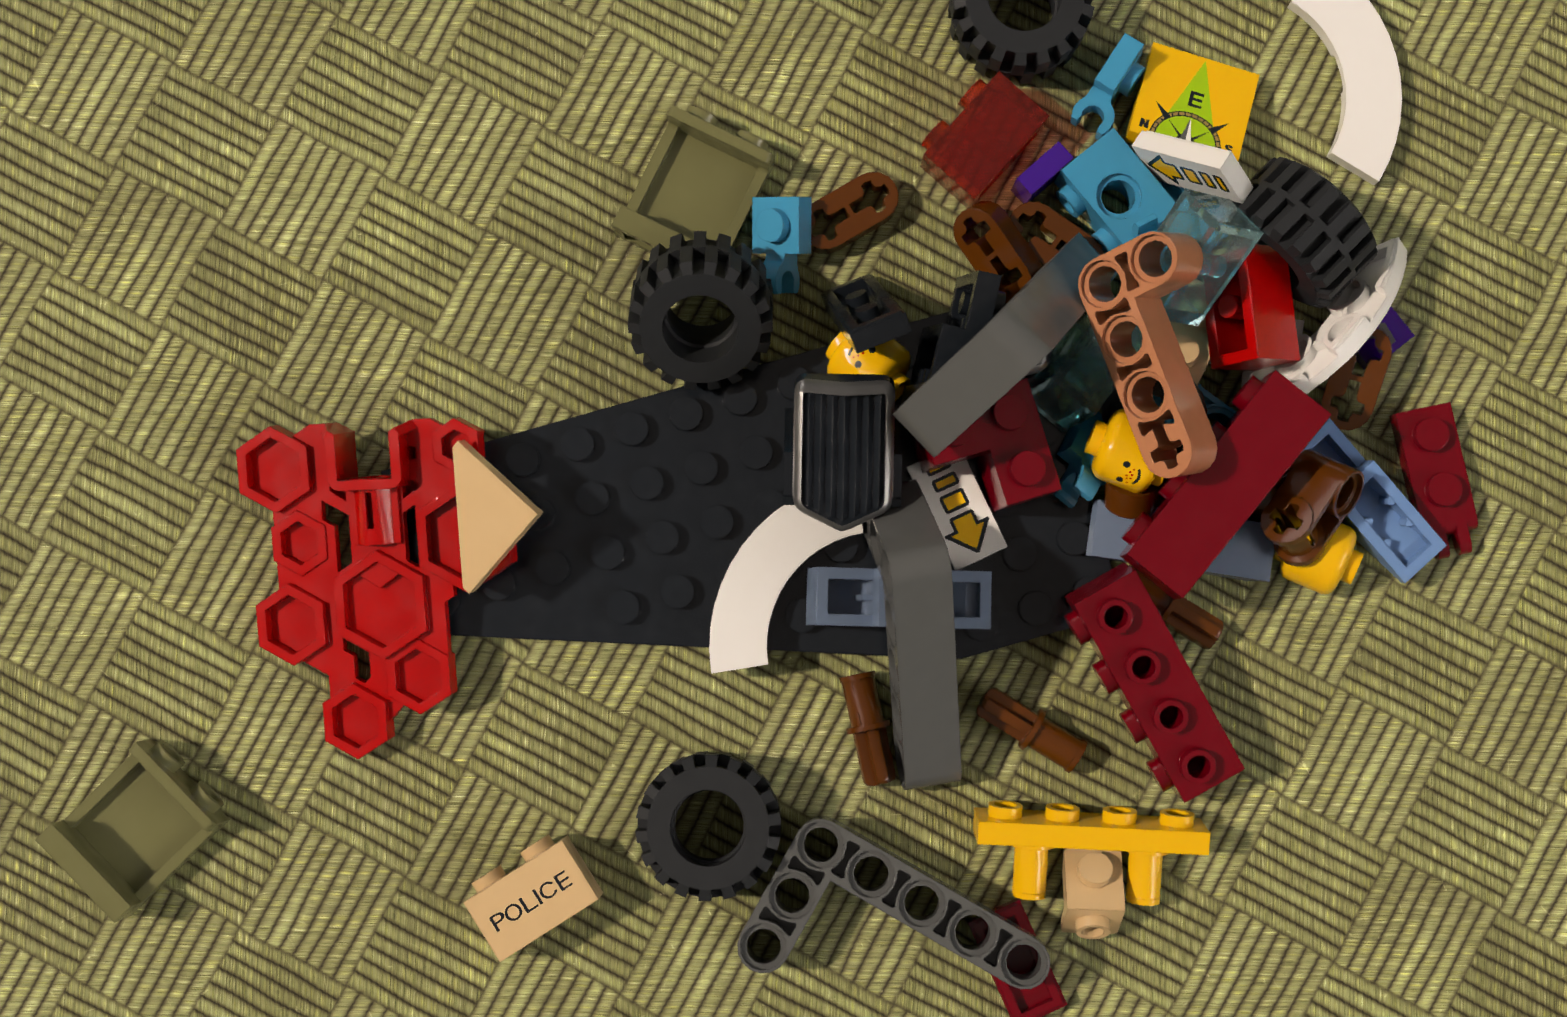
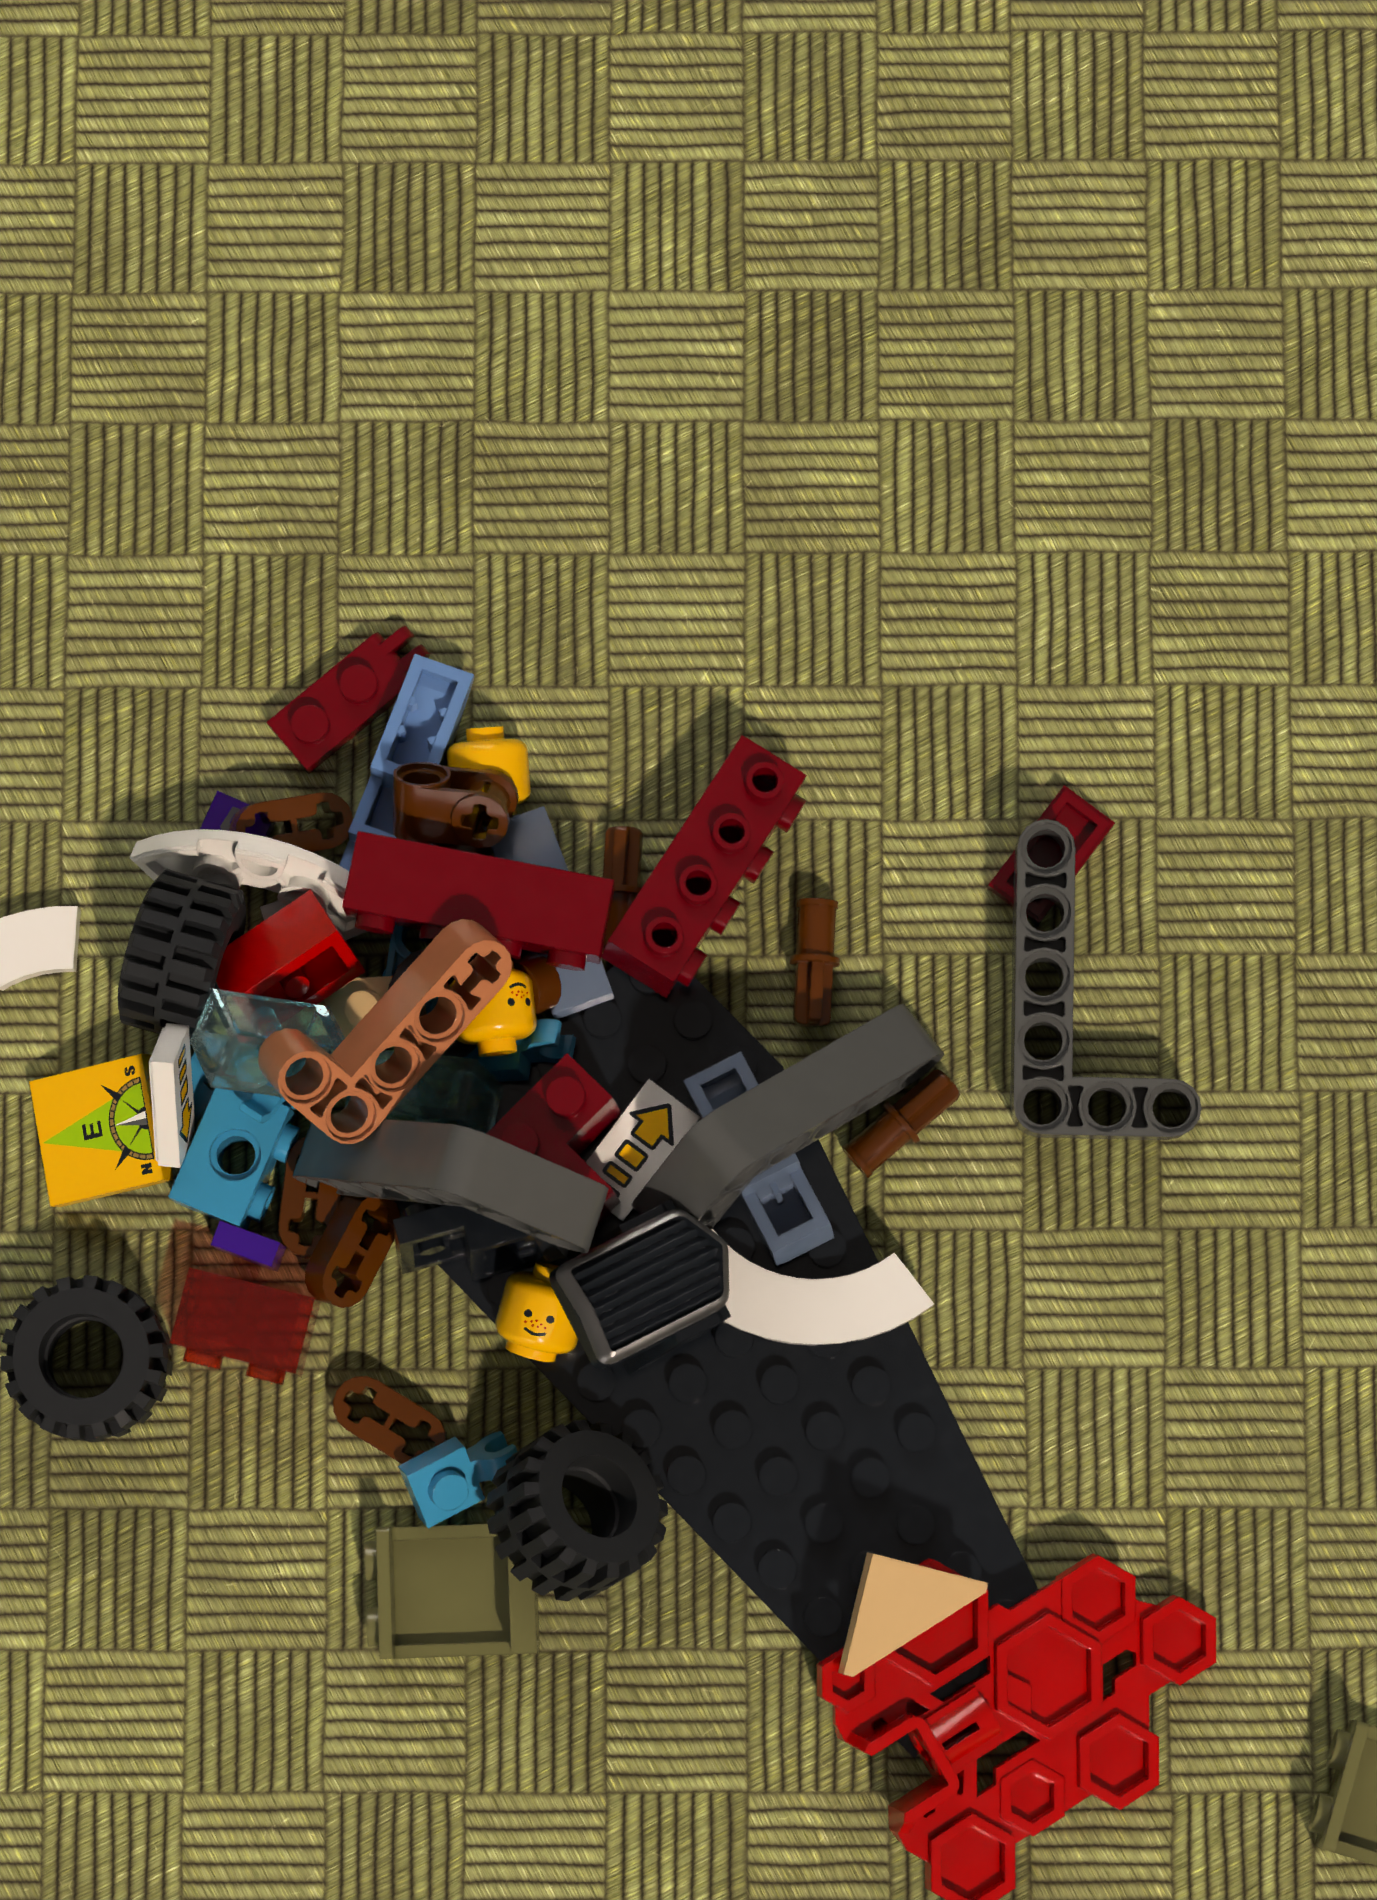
camera: 115 degrees left, 5 degrees down
(533, 896) = (1252, 1365): tan brick -> none
(693, 873) = (1119, 1182): black tyre -> none
(865, 313) = (492, 1342): black tile -> none
(1092, 892) = (940, 819): tan bracket -> none
(1114, 829) = (892, 876): yellow plate -> none
(1117, 76) = (106, 1222): dark azure plate -> none

